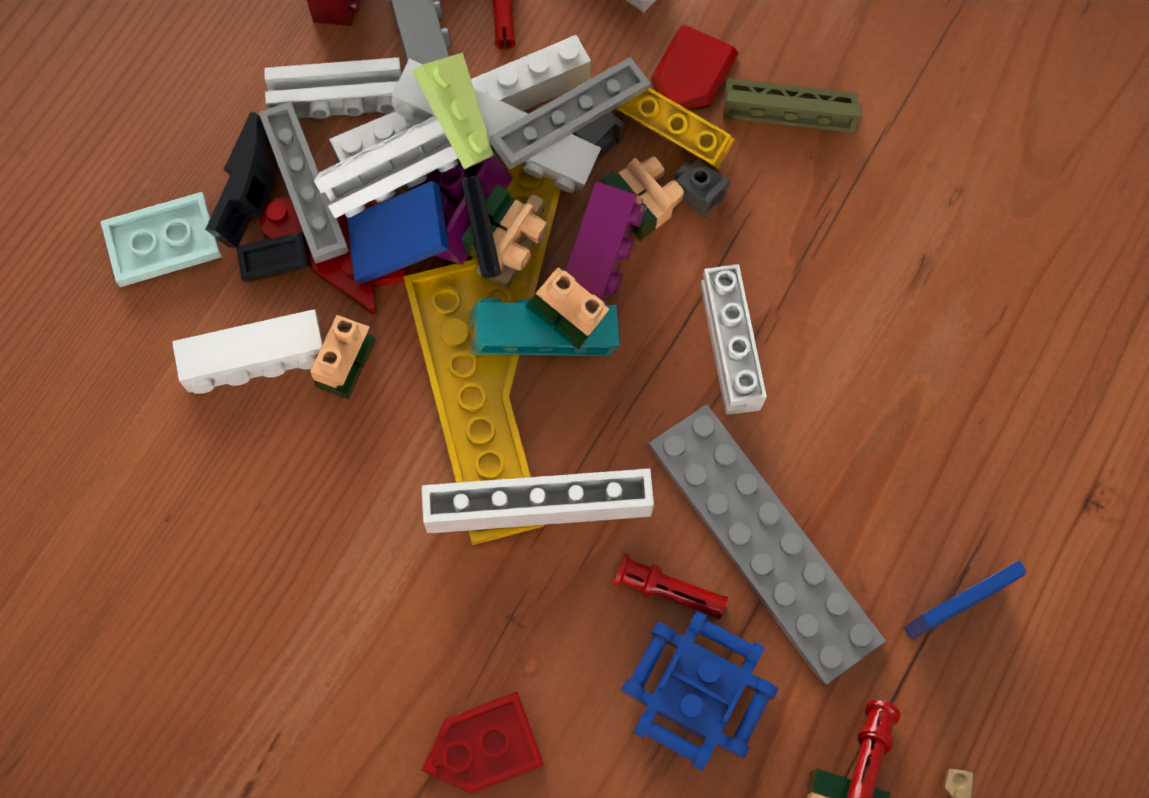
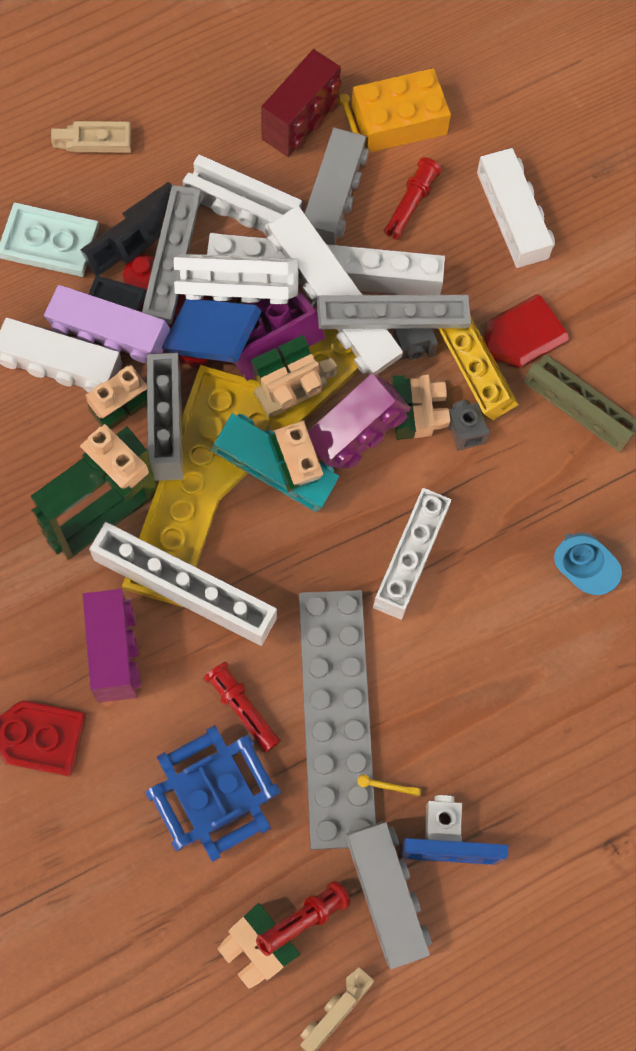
camera: 30 degrees right, 0 degrees up
(140, 110) = (94, 137): none -> tan hinge
(282, 289) = (106, 323): none -> lavender brick
(393, 462) = (73, 487): none -> dark green window
(401, 407) = (115, 463): none -> light nougat hips
(407, 346) = (164, 416): none -> light grey brick
(455, 105) = (306, 259): yellowish green wing -> none
(481, 227) = (268, 359): black axle -> none
(504, 606) = (111, 645): none -> magenta brick
(836, 585) = (364, 780): none -> yellow hinge
(900, 251) = (588, 563): none -> dark azure piece
(927, 590) = (434, 828): none -> white brick
(930, 680) = (387, 894): none -> light grey brick

